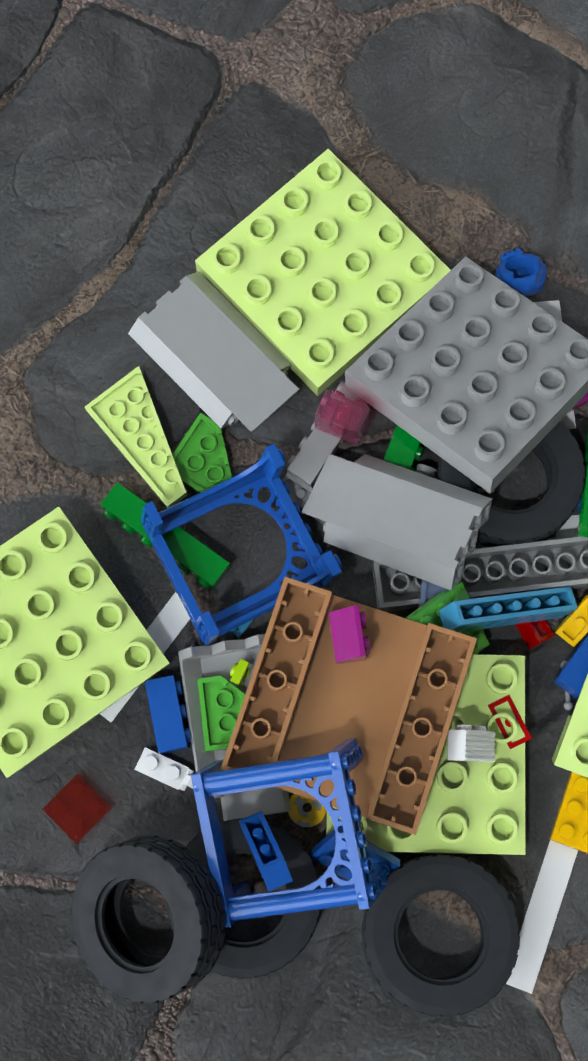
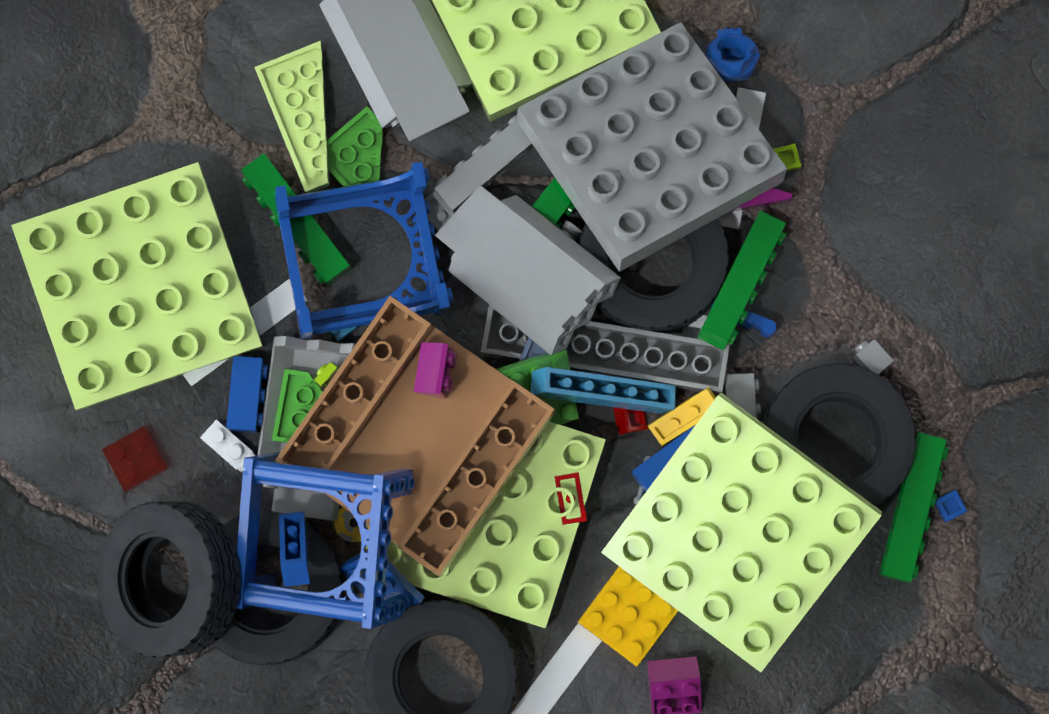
camera: 20 degrees right, 5 degrees up
(342, 416) = (501, 152): clear pink brick -> none
(471, 744) = (522, 509): white brick -> none

